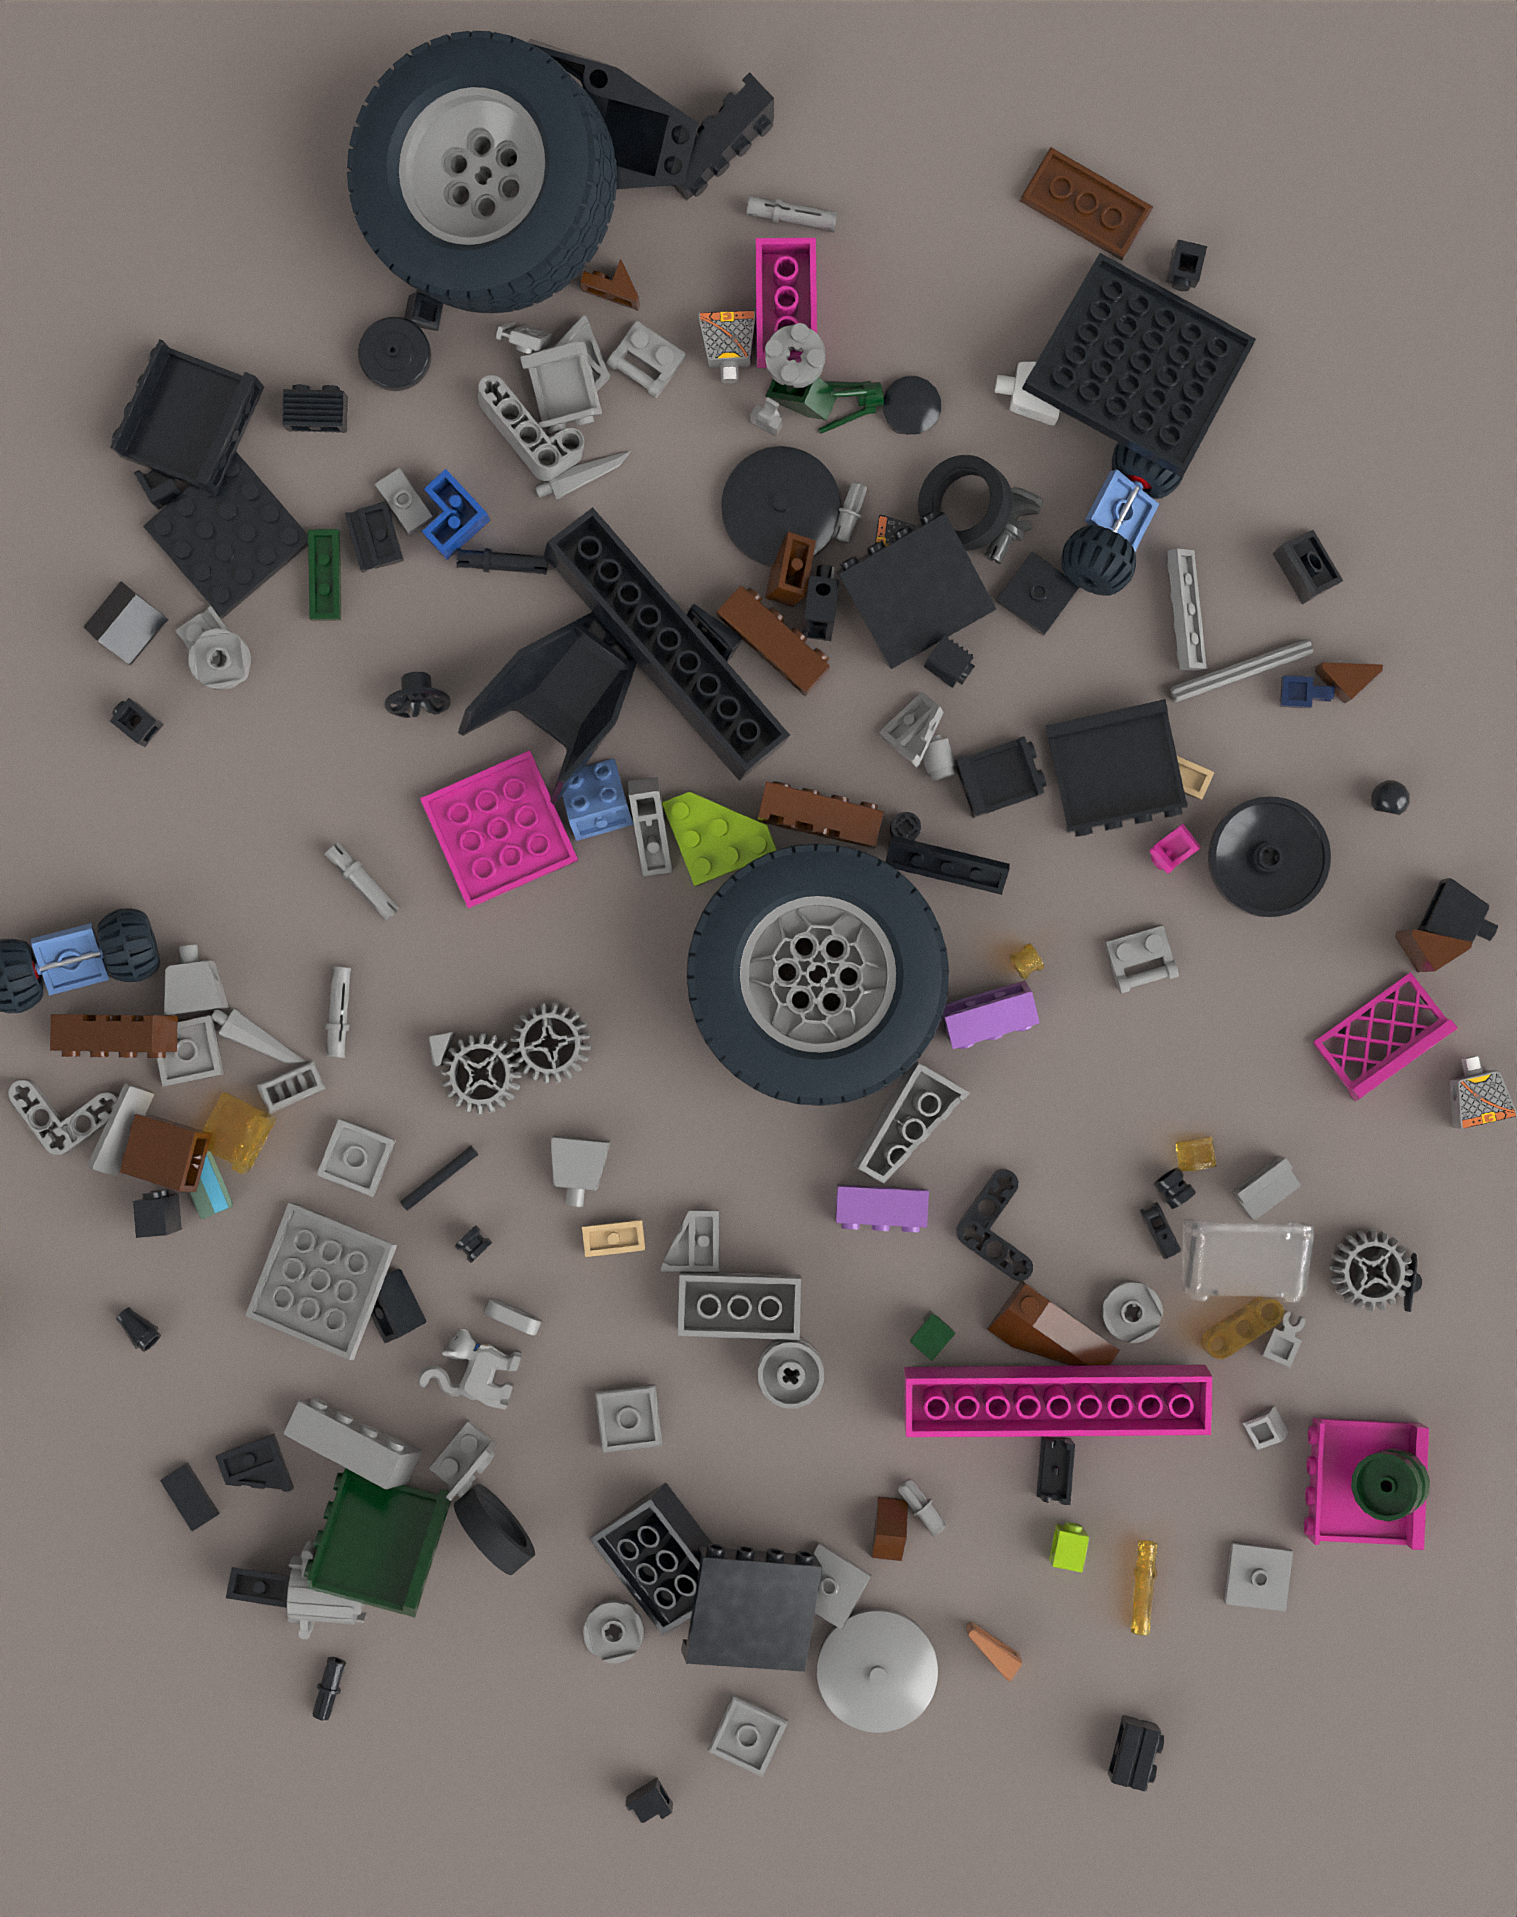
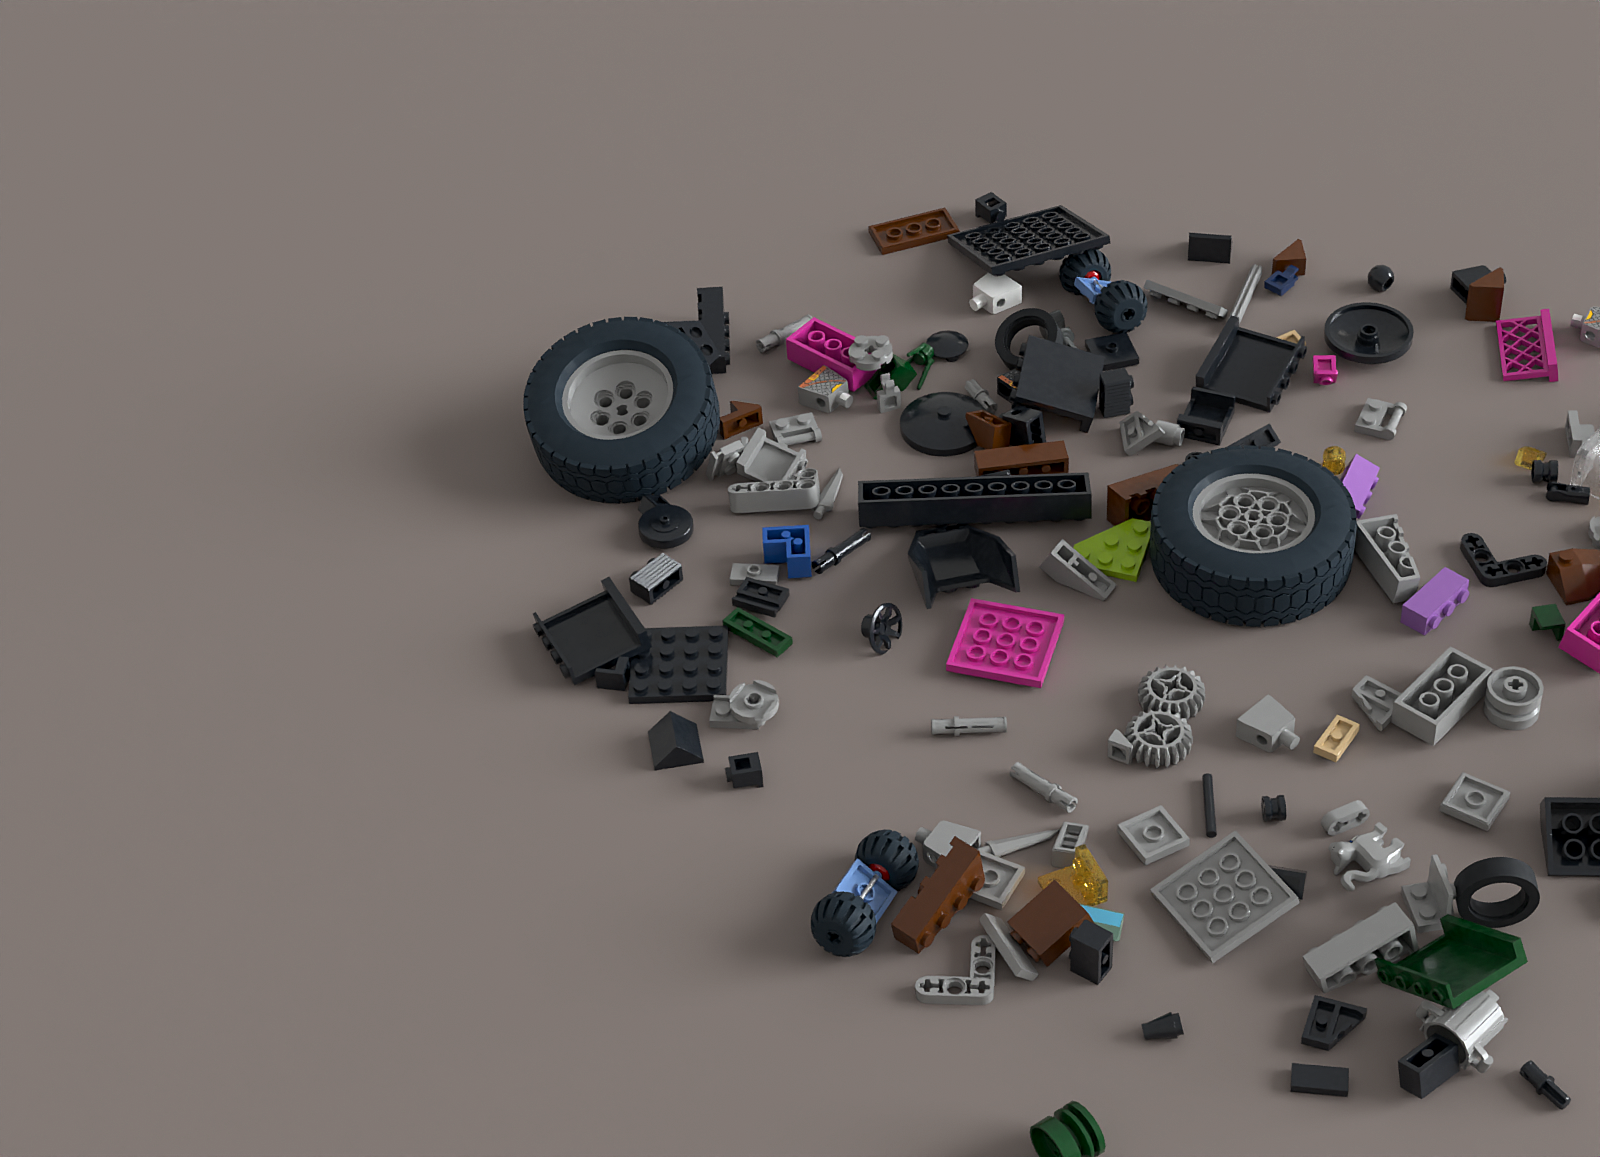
camera: 45 degrees left, 45 degrees down
(596, 801) = (1041, 585): medium blue bracket -> none

